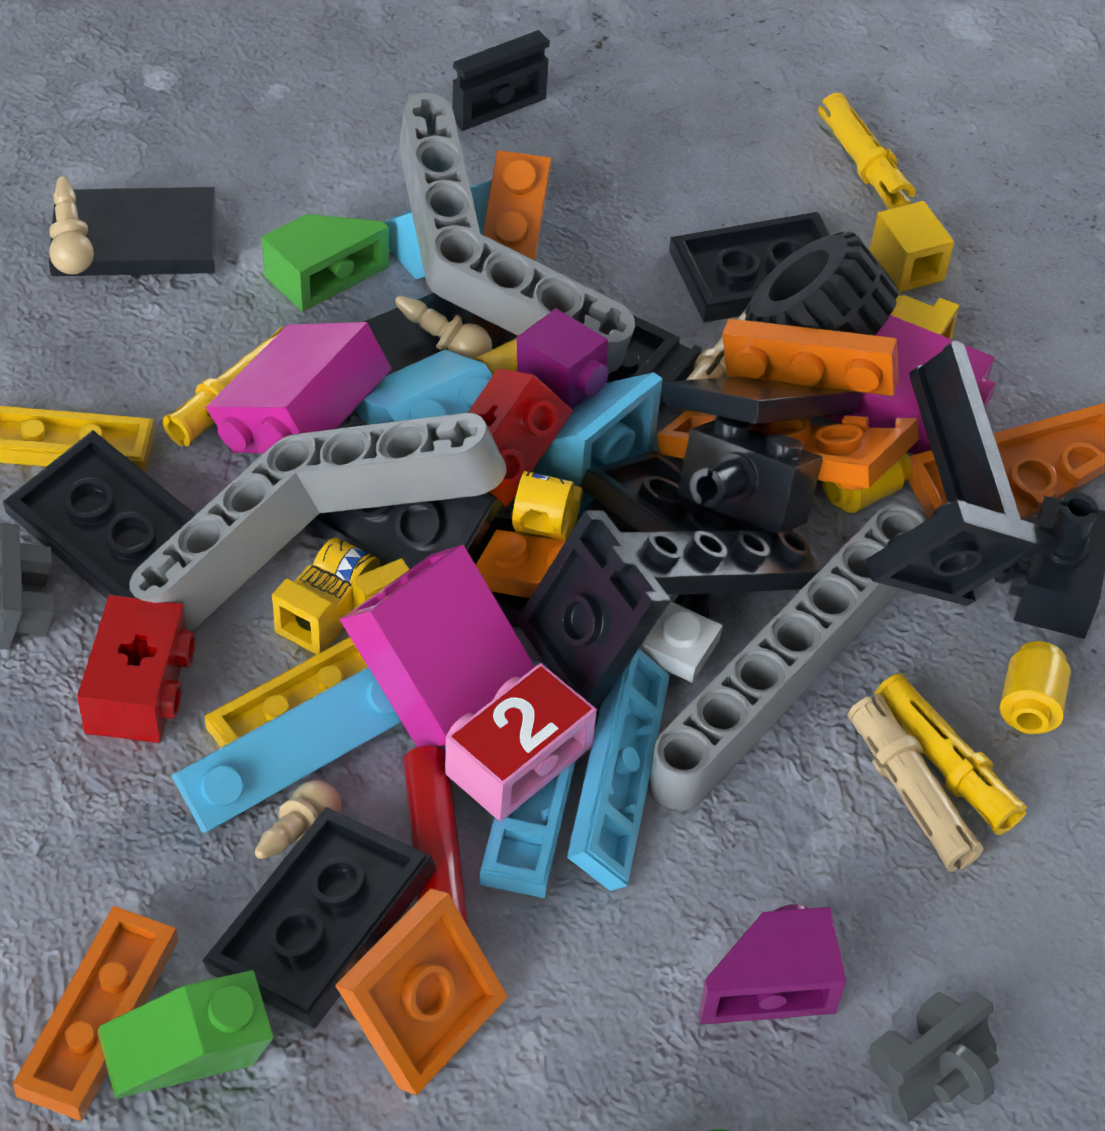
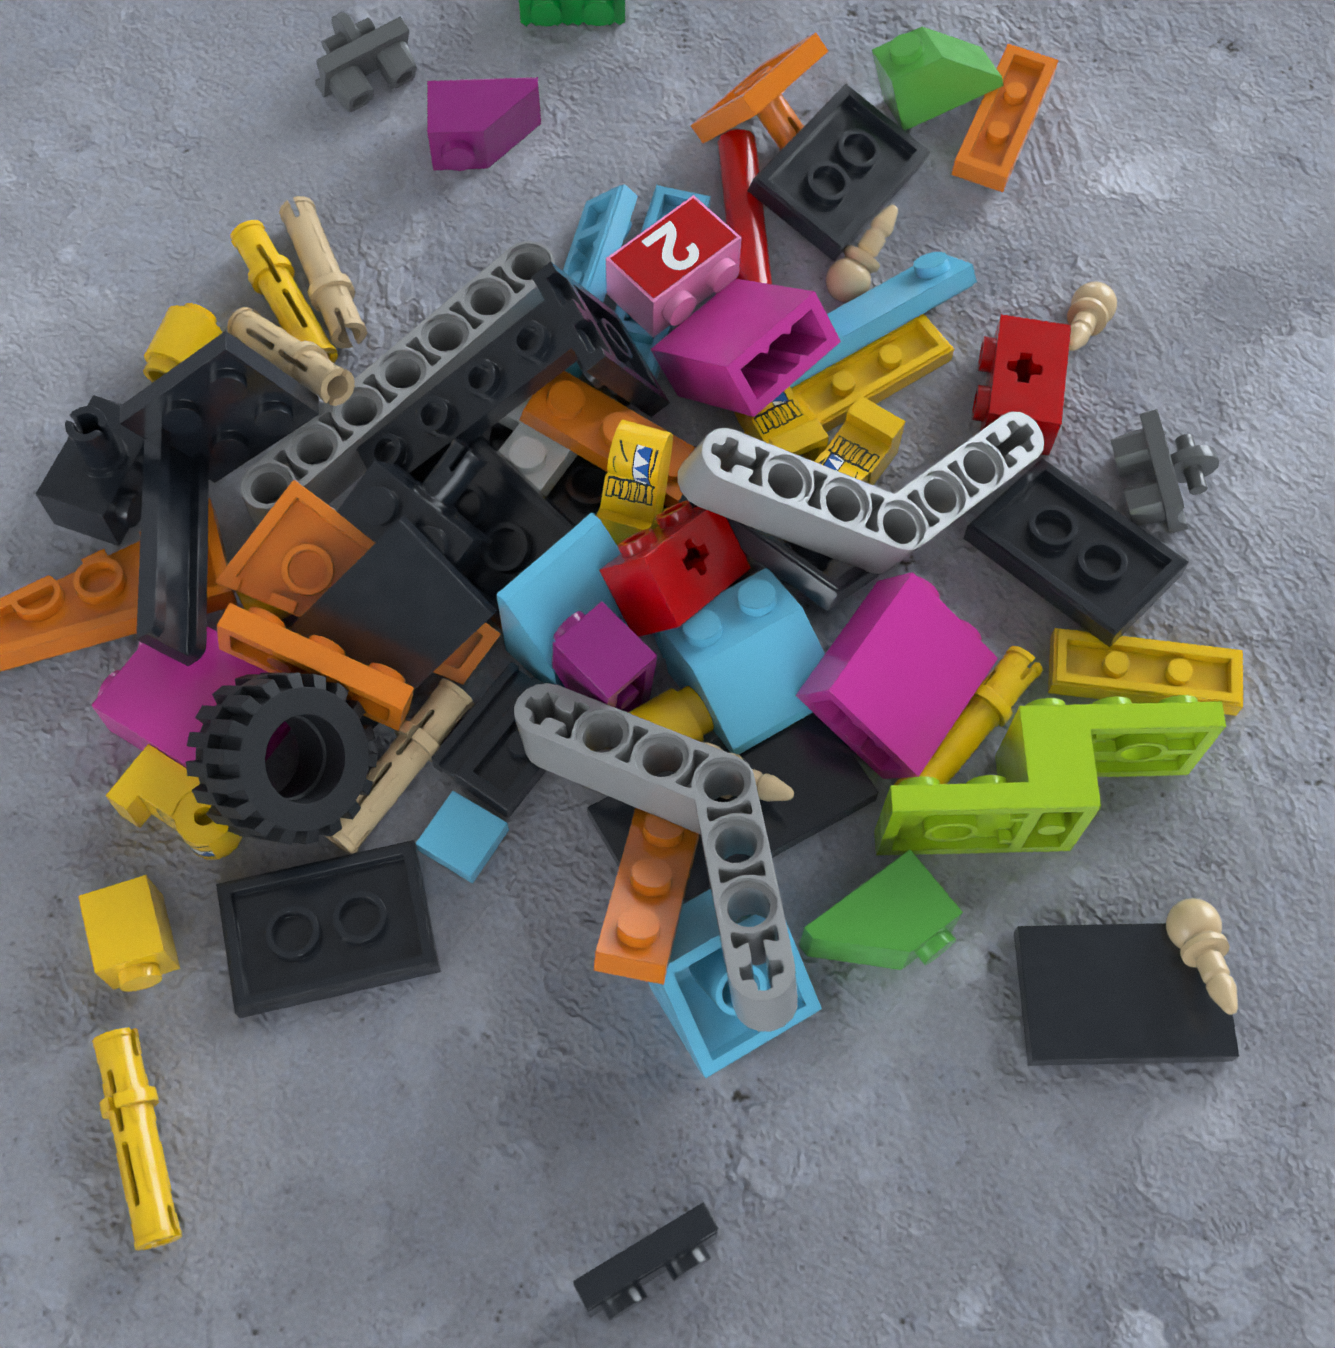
camera: 175 degrees left, 15 degrees up
(35, 782) = (1089, 312): none -> tan bar
(169, 330) = (1048, 776): none -> lime bracket
(670, 312) = (462, 836): none -> medium azure tile
(917, 655) = (320, 376): none -> tan pin

